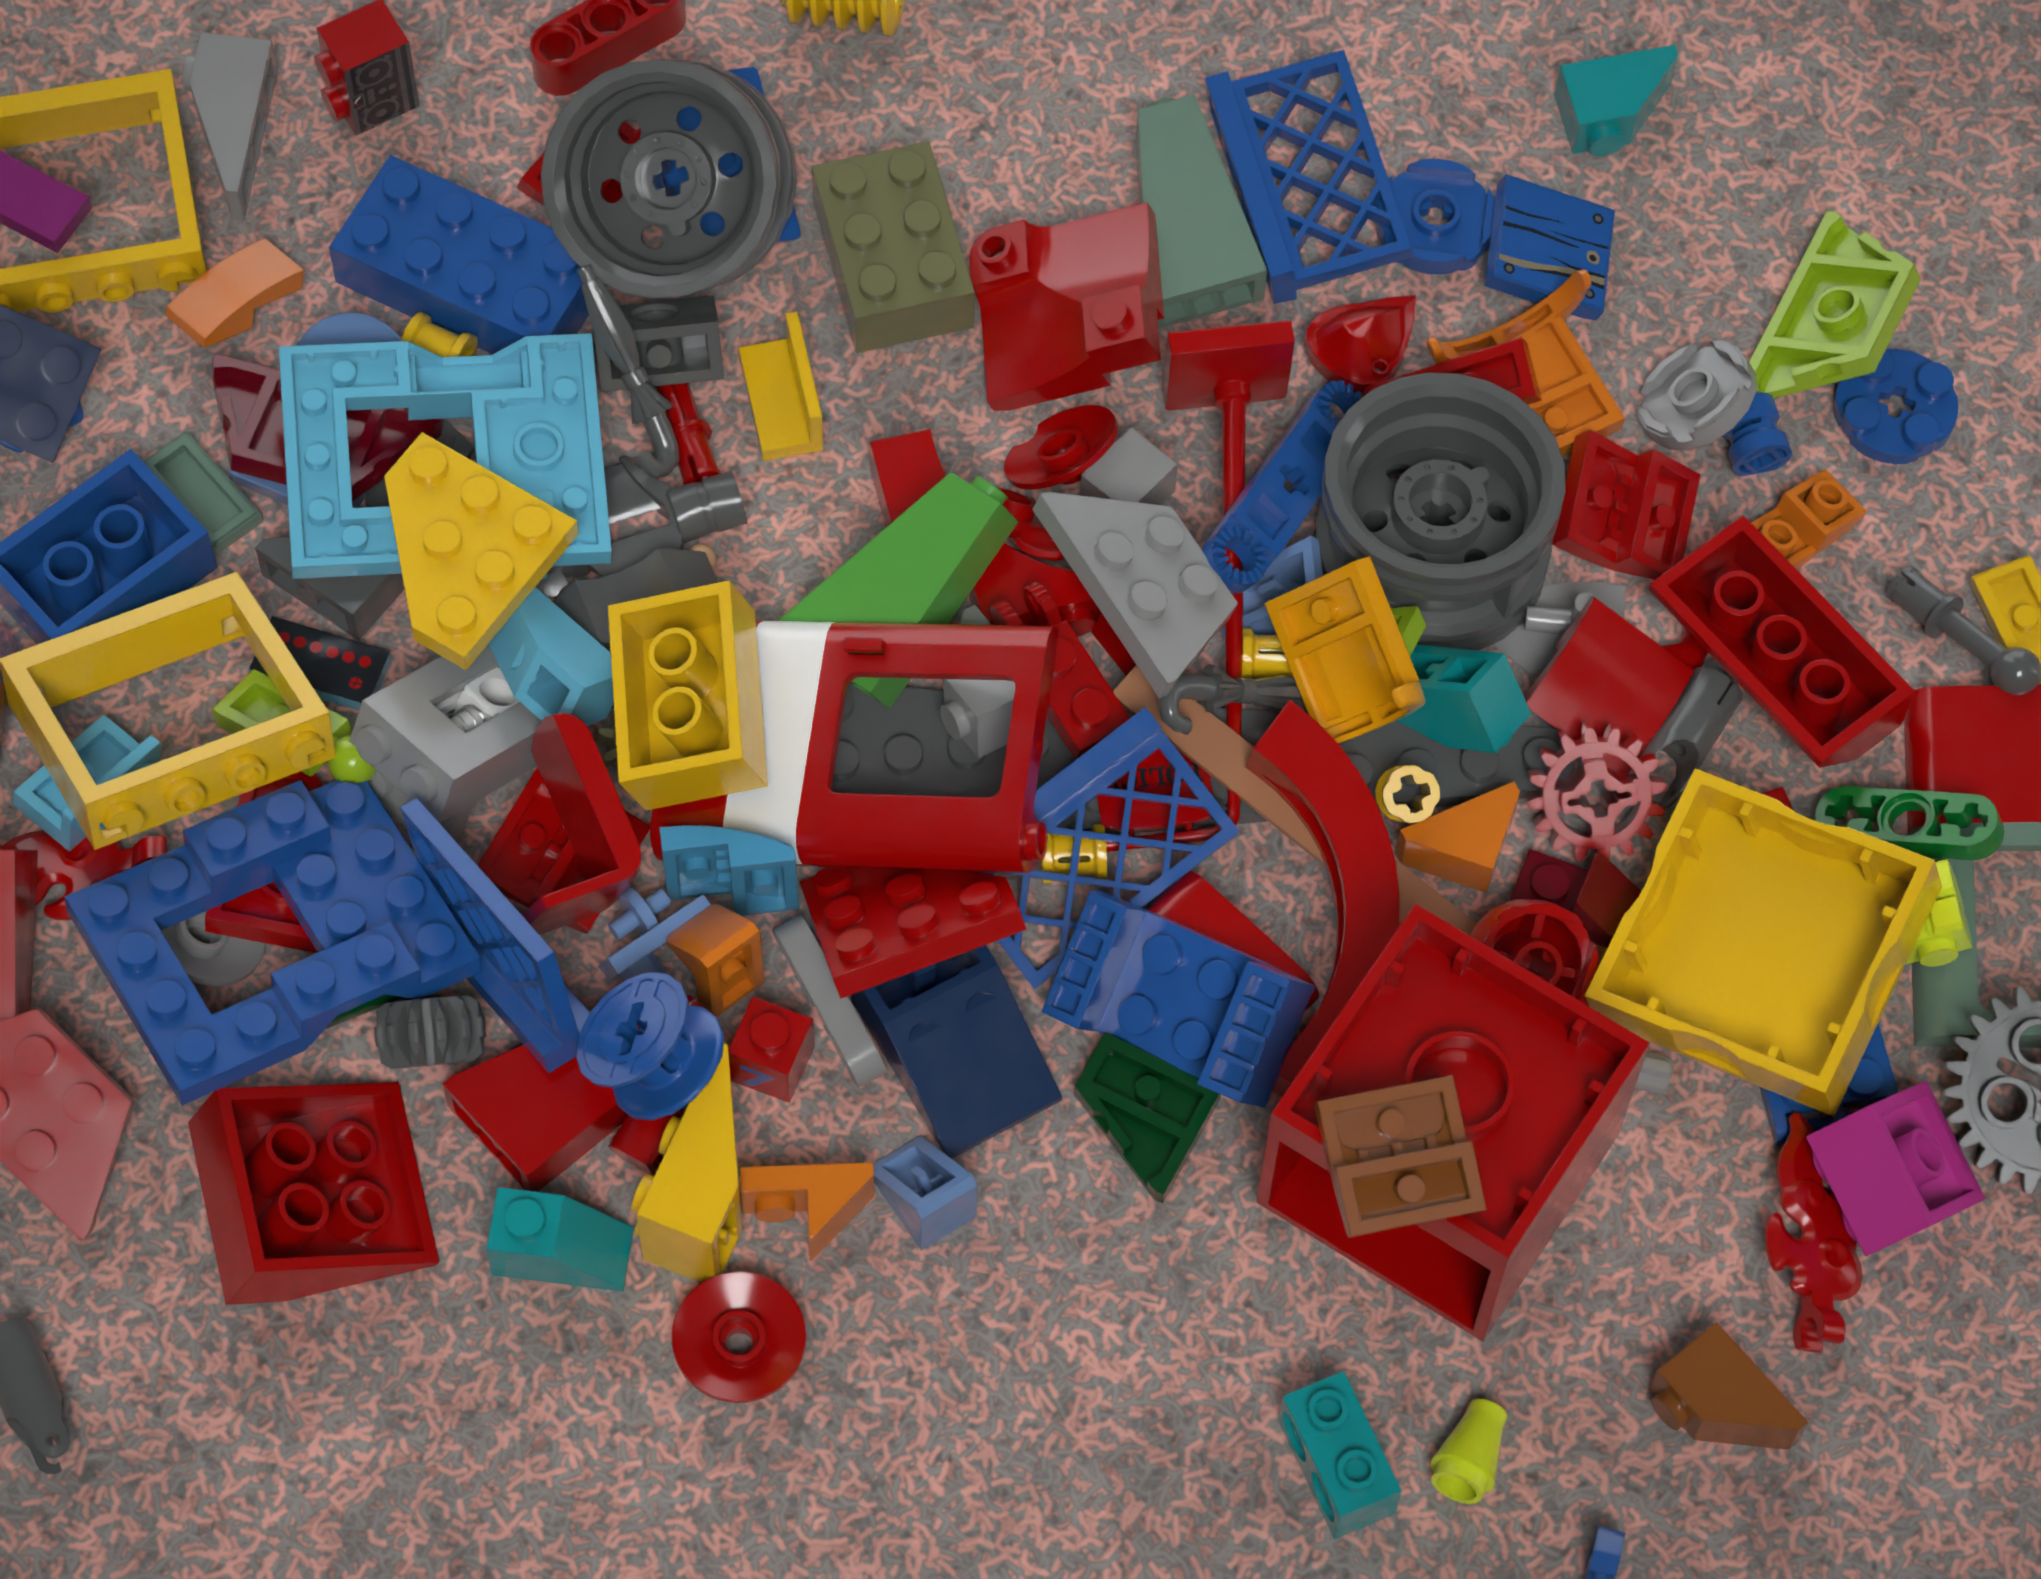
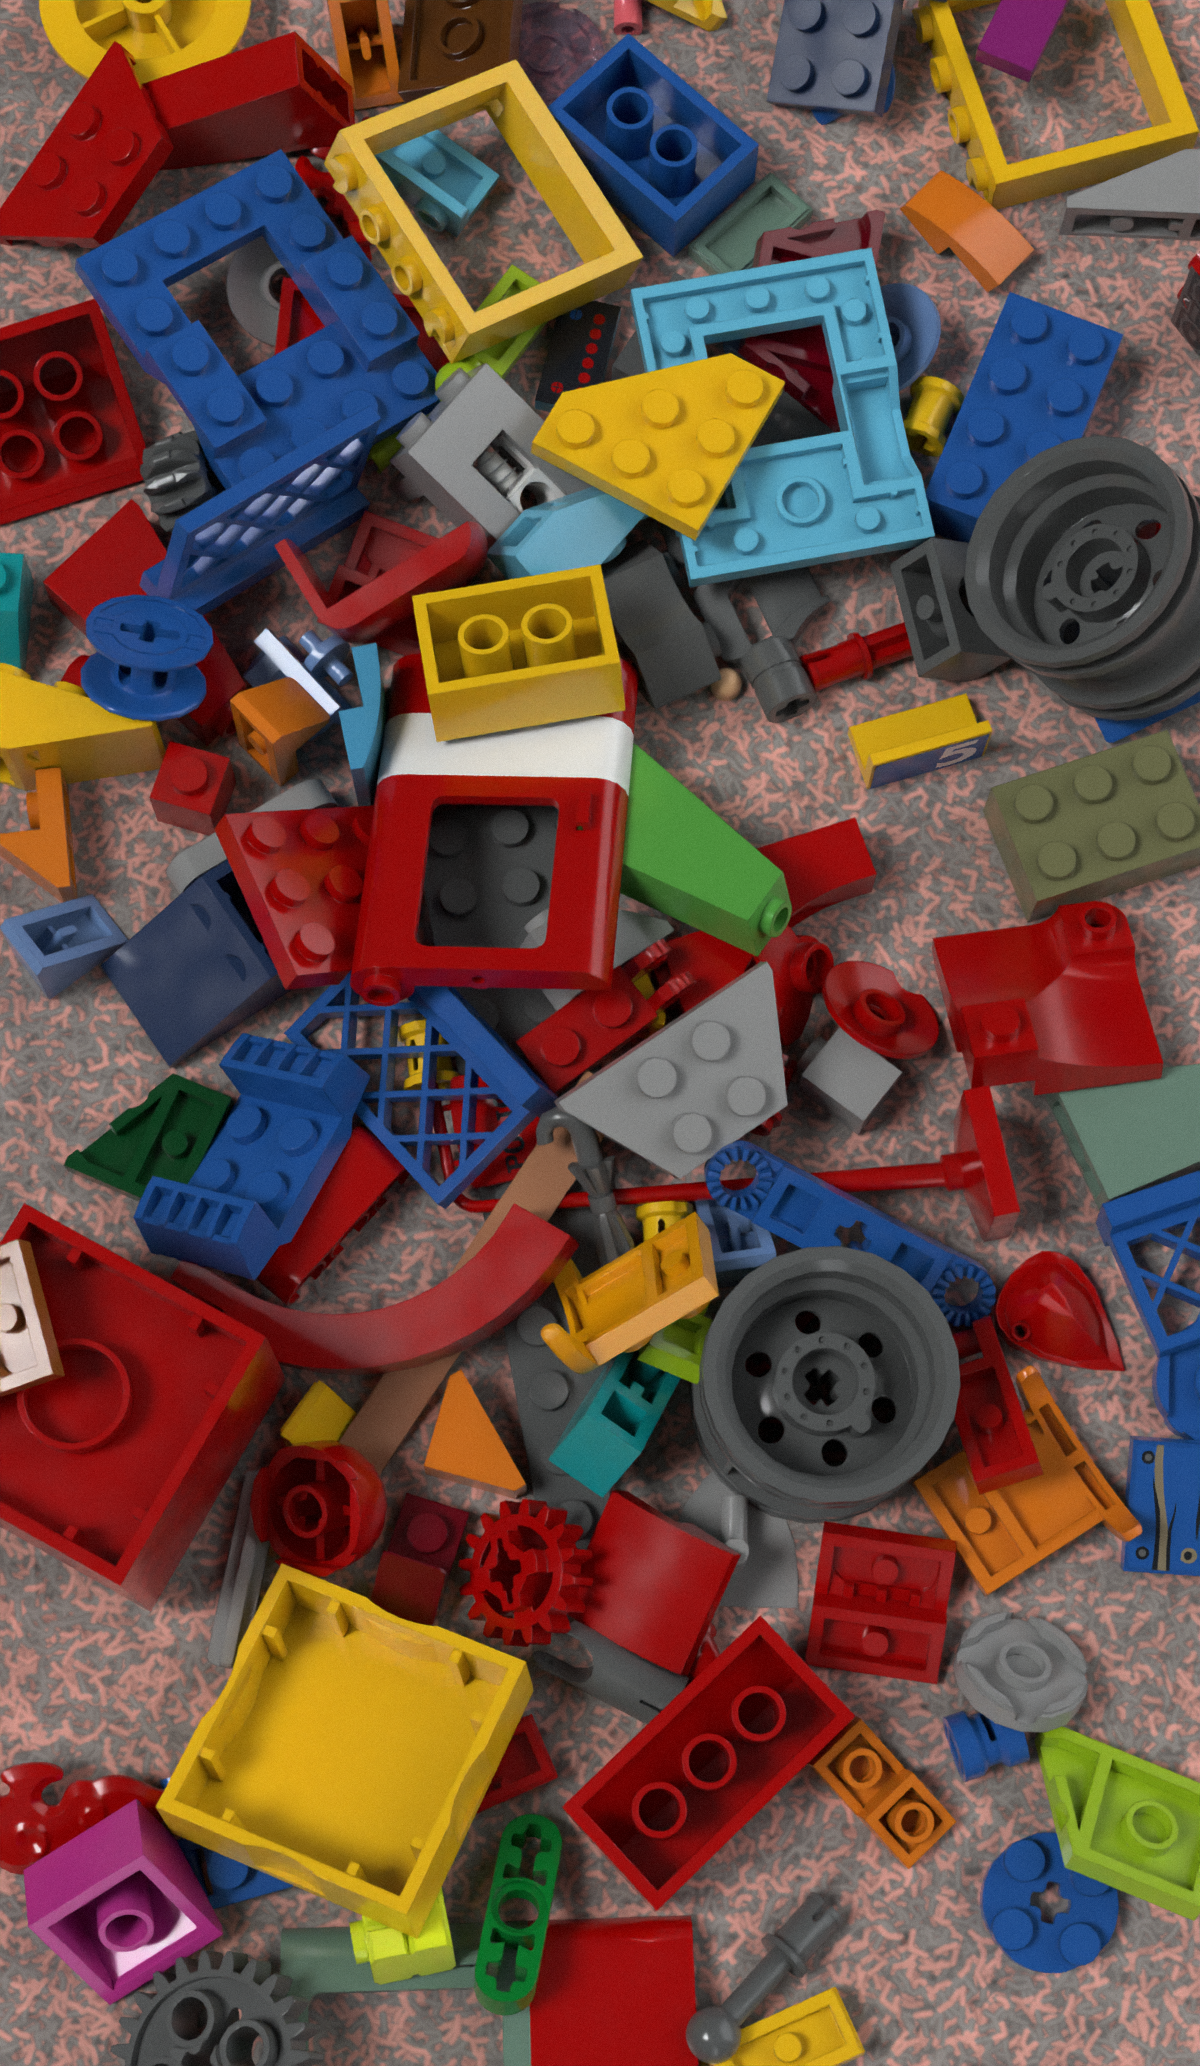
camera: 85 degrees right, 10 degrees up
(646, 403) = (919, 559): dark grey piece -> none
(1423, 804) = (505, 1379): yellow bush -> none

